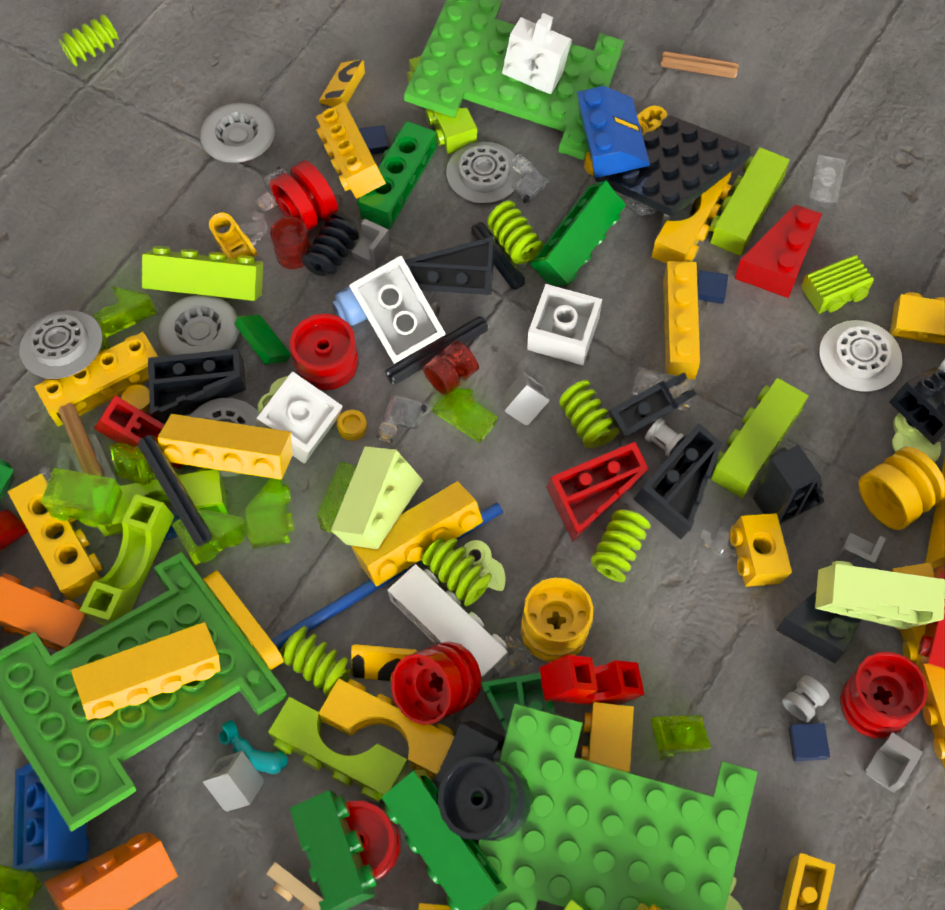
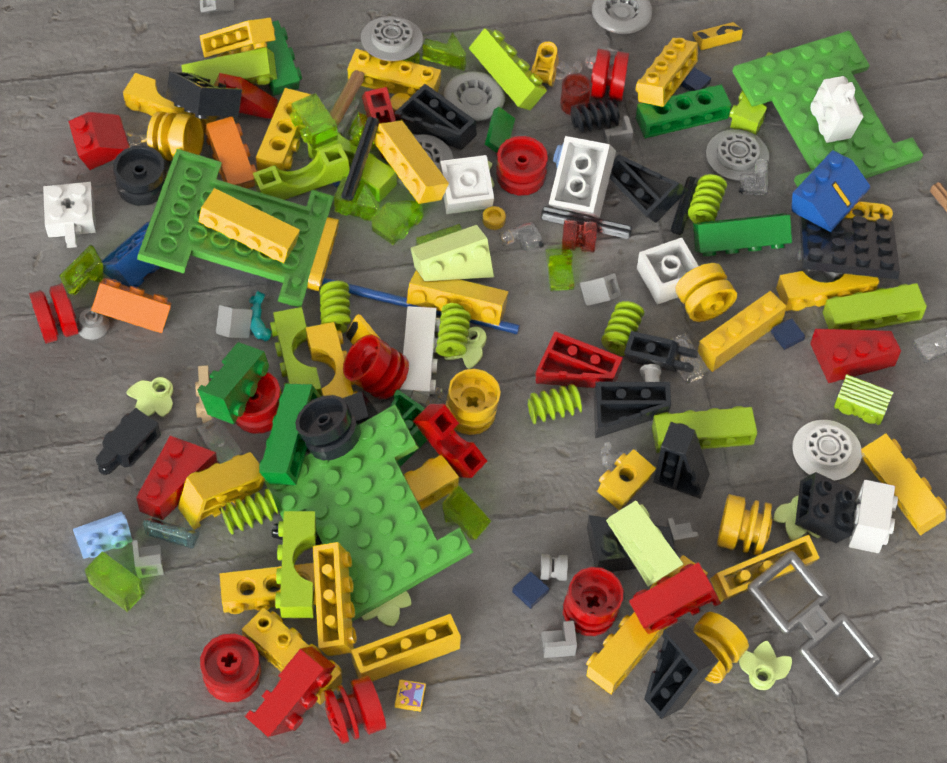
camera: 45 degrees right, 5 degrees down
(619, 313) = (706, 292): none -> yellow wheel

